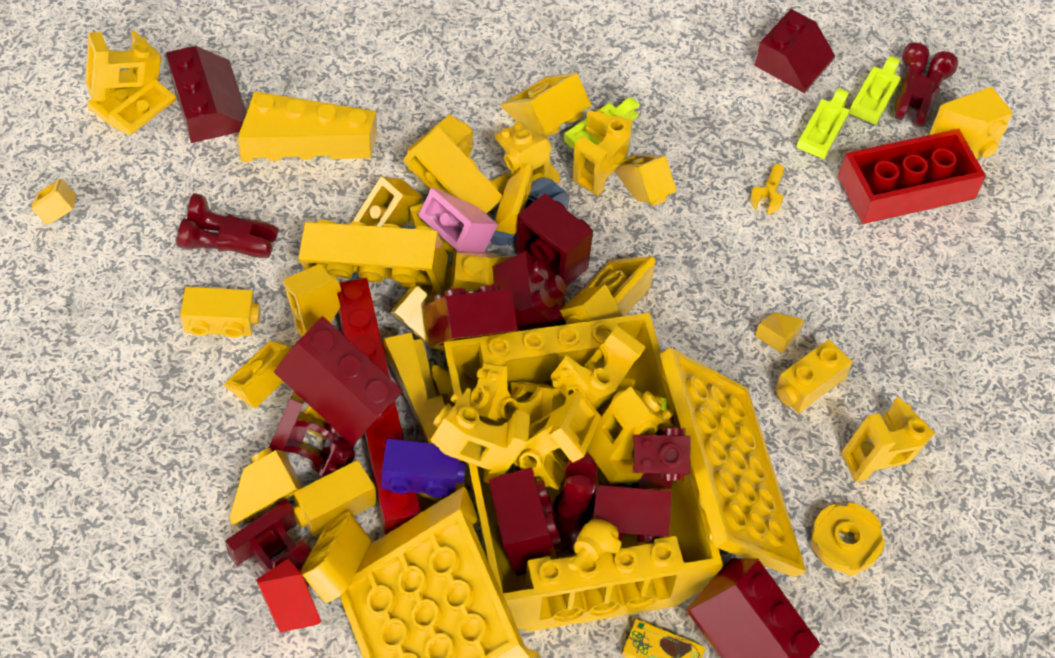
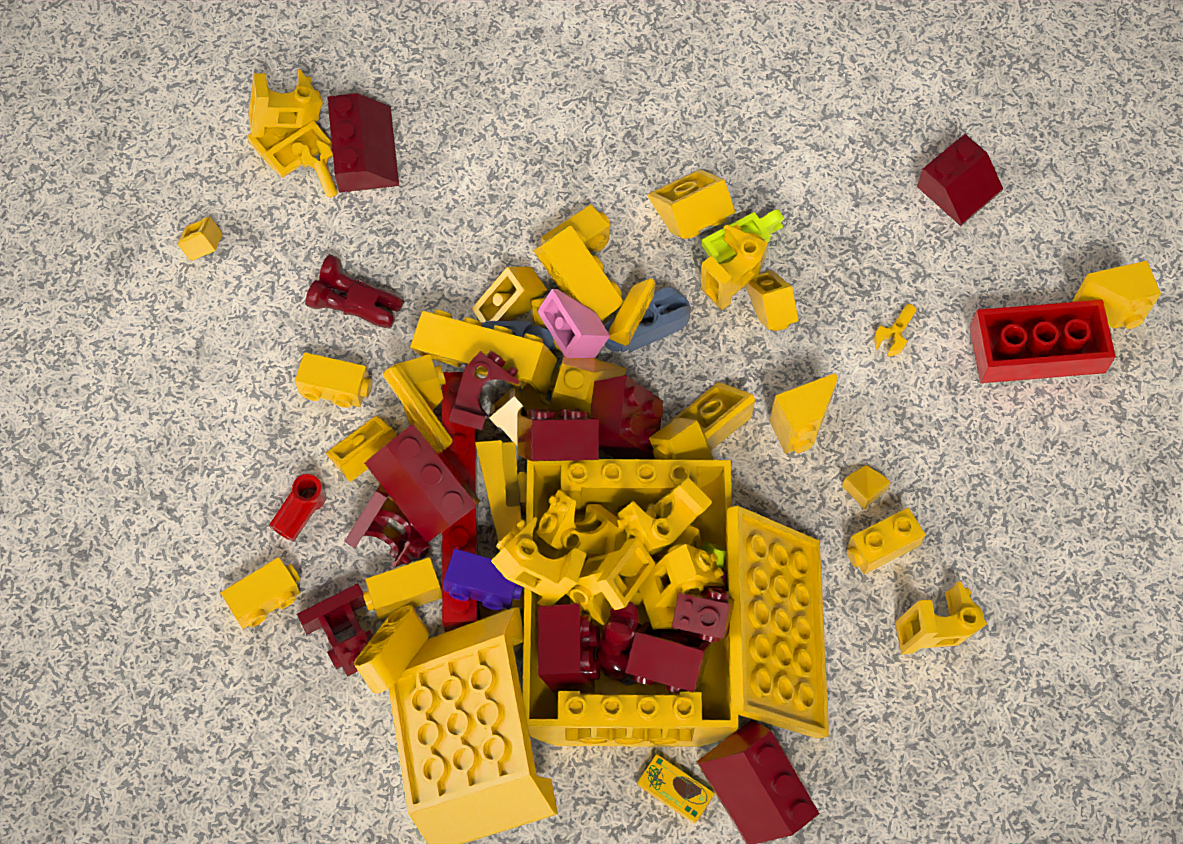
camera: 15 degrees right, 10 degrees up
(168, 118) = (320, 166): none -> yellow bar
(181, 529) = (262, 592): none -> yellow brick
(205, 439) = (296, 509): none -> red piece
(263, 485) = (341, 565): yellow slope -> none
(288, 598) = (341, 679): slope -> none
(305, 129) = (447, 197): yellow wedge -> none
(310, 303) = (416, 405): none -> yellow axle
(372, 302) = (467, 406): none -> dark red tile
(524, 148) = (653, 261): yellow tile -> none
(554, 238) = (662, 359): dark red brick -> none
(594, 540) = (622, 684): yellow piece -> none
(701, 270) = (800, 413): none -> yellow slope
(825, 125) = (970, 268): neon yellow plate -> none
(838, 554) = (874, 730): yellow plate -> none
(876, 92) = (1034, 238): neon yellow plate -> none
(918, 89) = (1078, 241): dark red piece -> none

